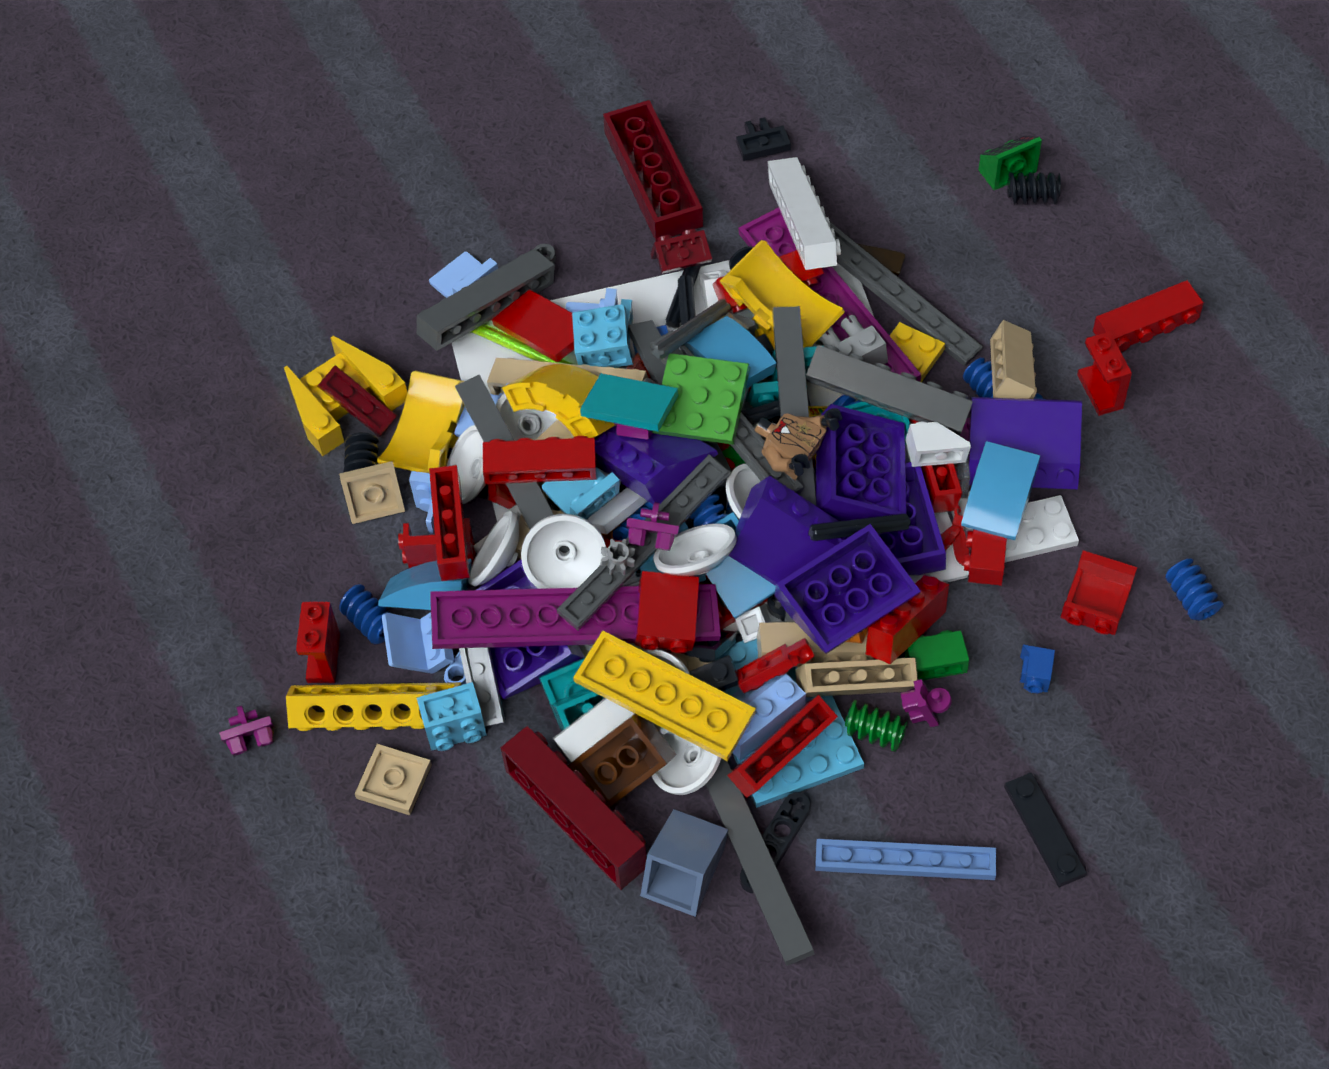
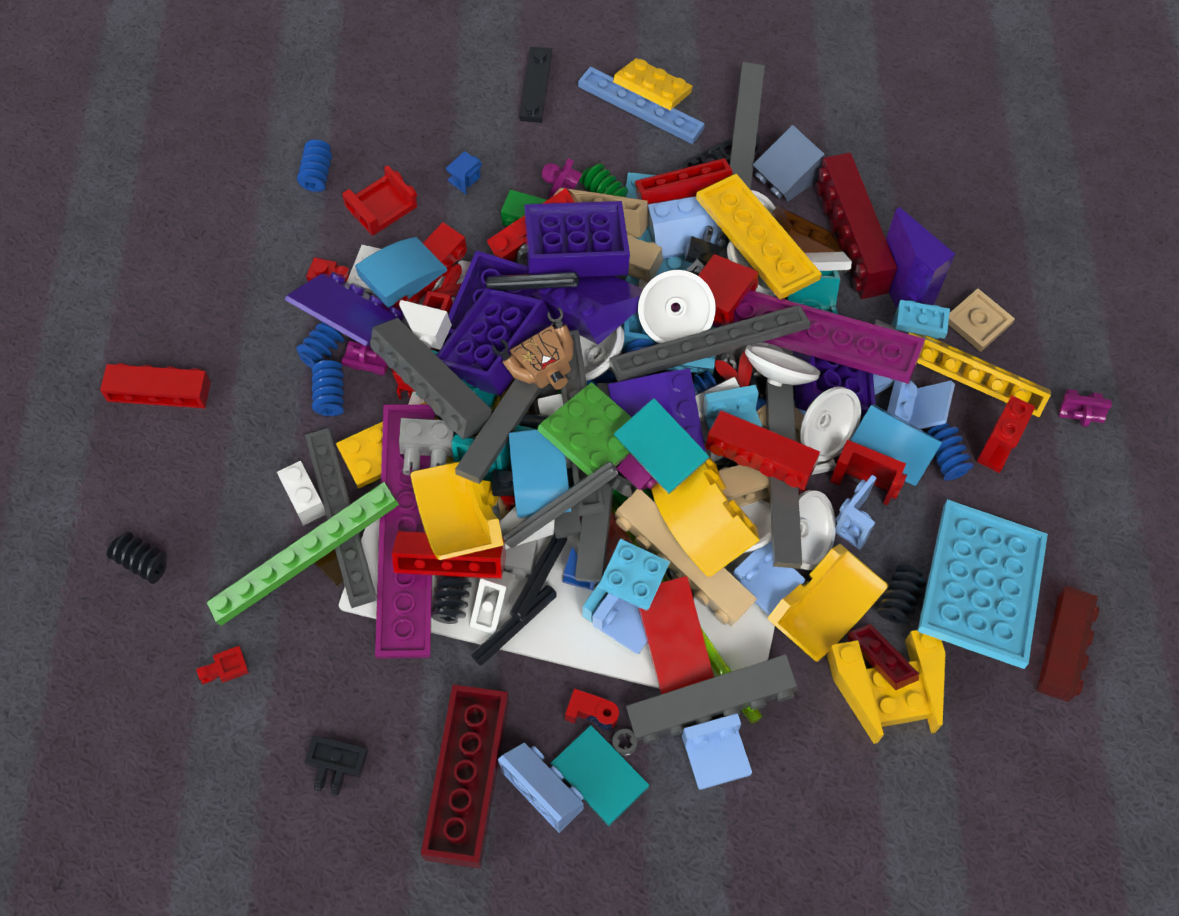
camera: 155 degrees left, 5 degrees up
(195, 497) = (1067, 644): none -> clear red brick
(289, 500) = (984, 584): none -> medium azure plate
(372, 492) = (915, 556): tan plate -> none
(449, 523) = (863, 444): red brick -> none
(482, 754) = (919, 259): none -> dark purple slope
(552, 225) = (600, 775): none -> teal tile
(583, 261) = (592, 708): none -> red leg
(590, 186) = (541, 785): none -> light blue slope
(623, 561) = (744, 324): light grey gear -> none
(665, 532) = (703, 331): magenta hips -> none
(681, 251) = (499, 656): dark red bracket -> none
(773, 664) = (661, 232): red hinge -> none
(803, 214) = (372, 605): white brick -> none
(896, 157) = (227, 665): none -> red plate
(896, 246) = (302, 553): none -> bright green plate
(908, 891) = (653, 83): none -> yellow plate
(944, 293) = (301, 493): none -> white brick
(1012, 362) = (302, 381): tan brick -> none
(1013, 157) = (133, 594): green slope -> none
(1091, 498) = (323, 266): none -> red plate
(1108, 377) = (235, 344): red panel -> none

